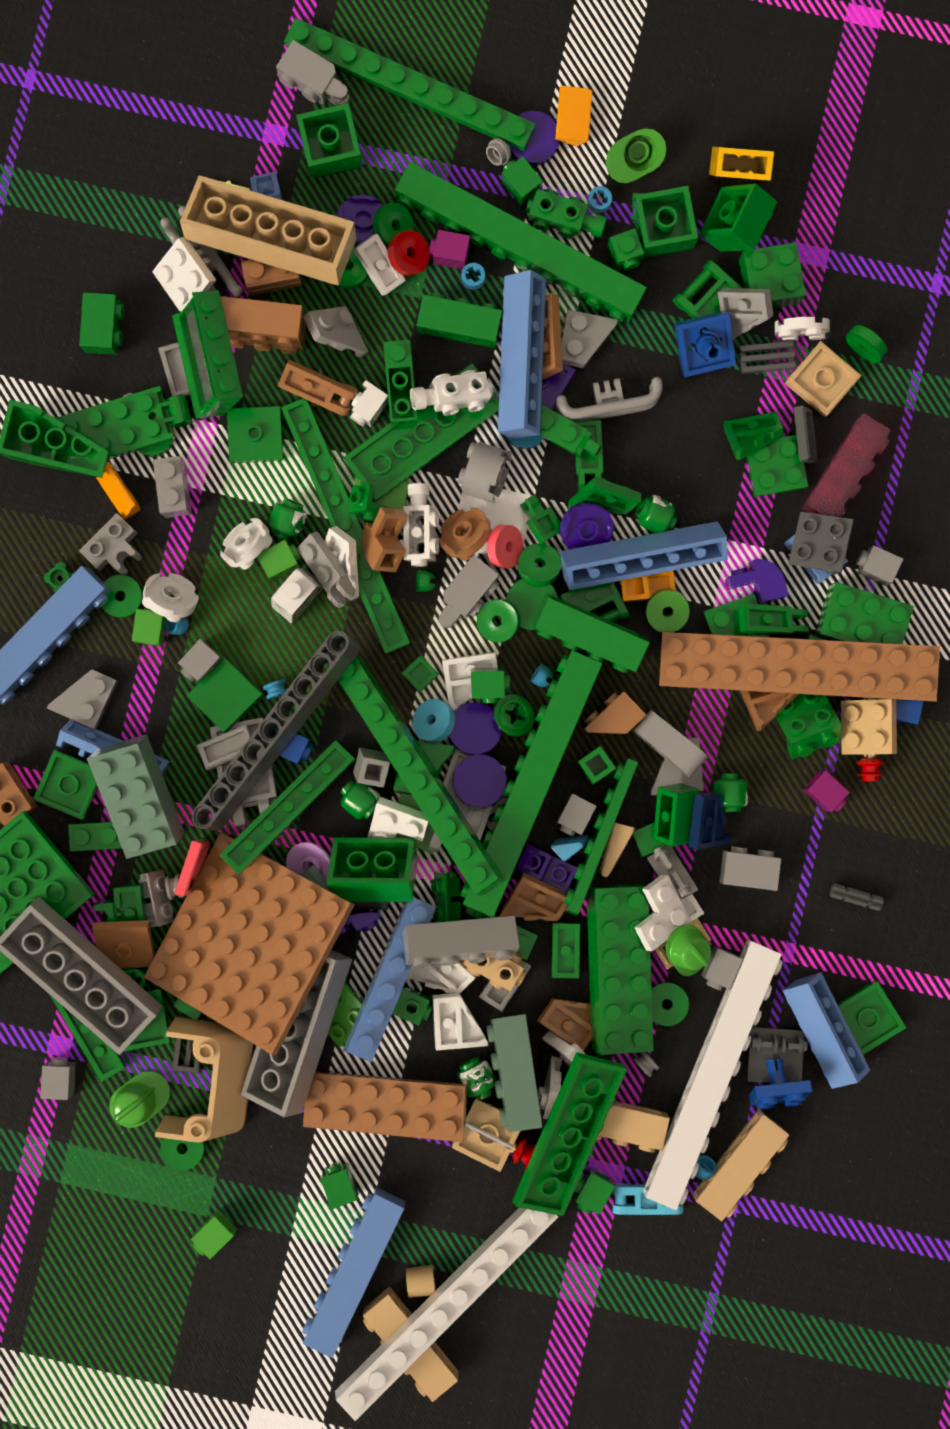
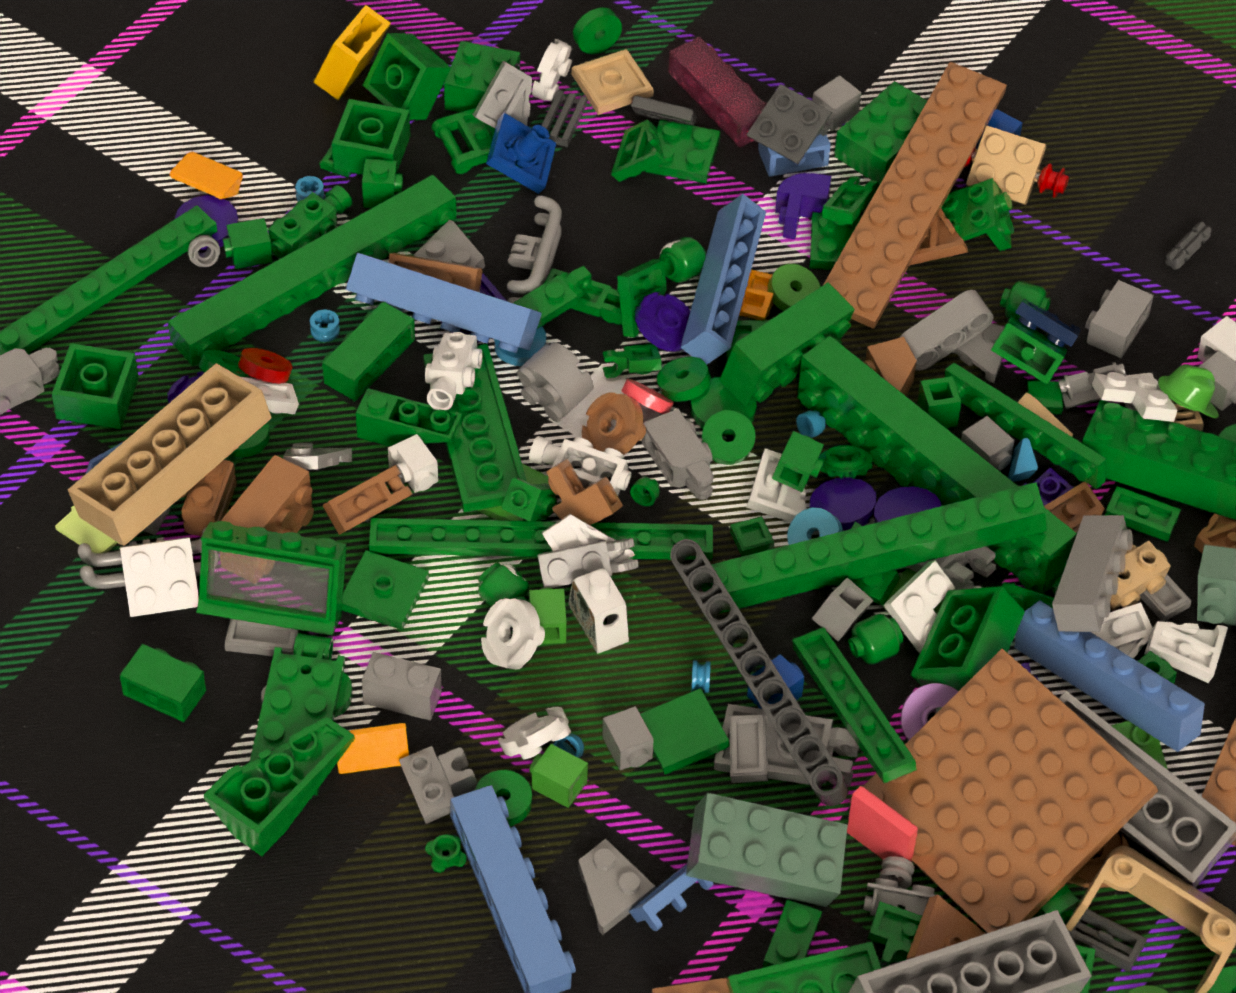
camera: 70 degrees left, 35 degrees down
(67, 785) = (712, 939): green plate -> none
(450, 249) = (285, 329): magenta brick -> none
(635, 155) = (285, 135): bright green piece -> none
(826, 791) = (1060, 227): magenta brick -> none

